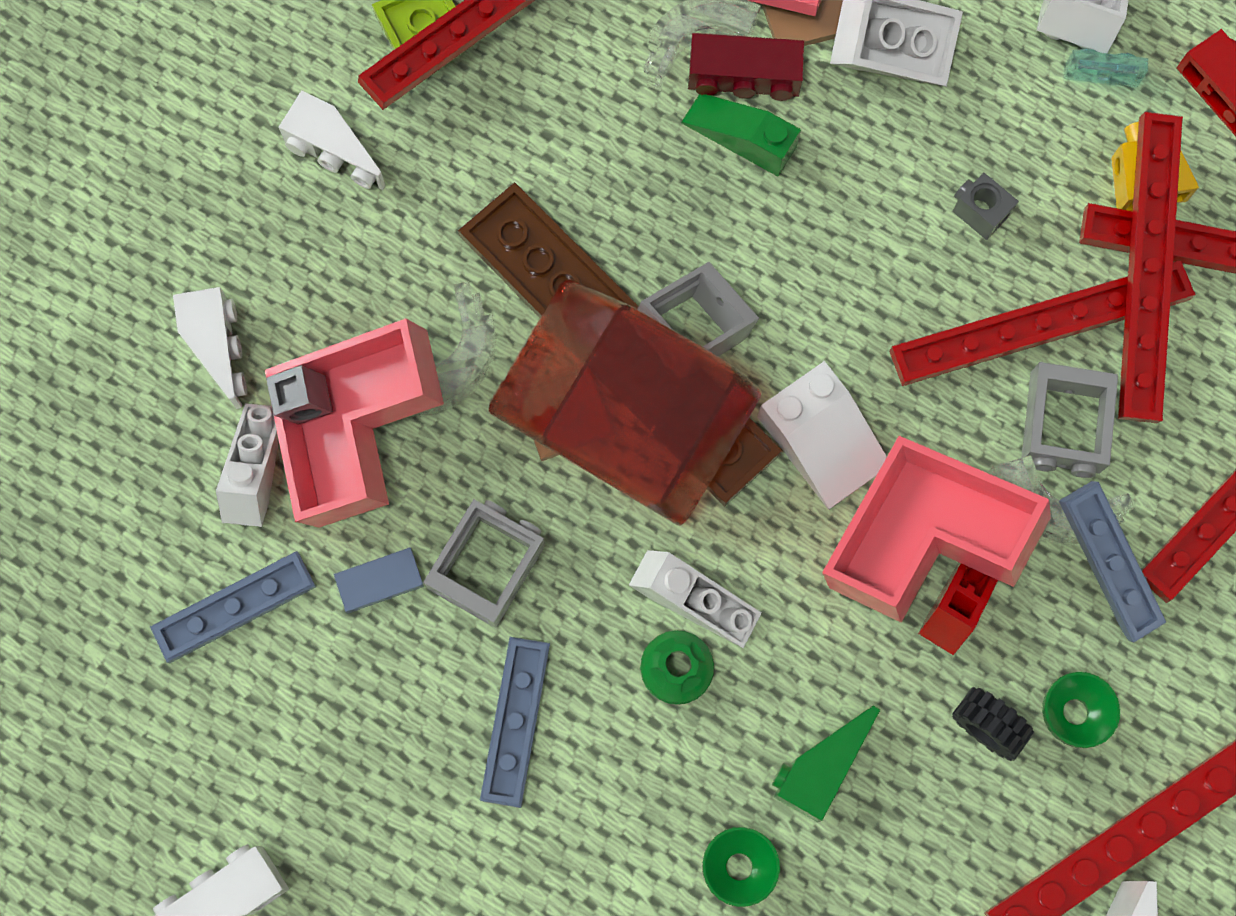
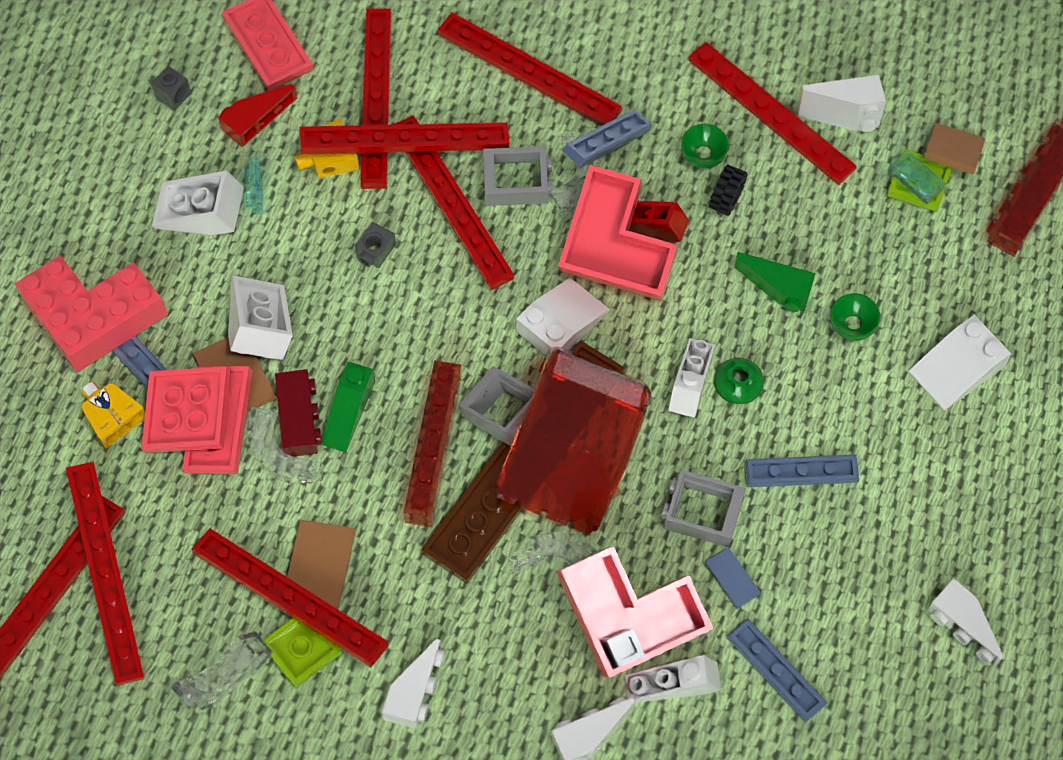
camera: 100 degrees left, 10 degrees down
(531, 65) = (322, 559): none -> medium nougat tile
(663, 223) = (433, 444): none -> clear red brick

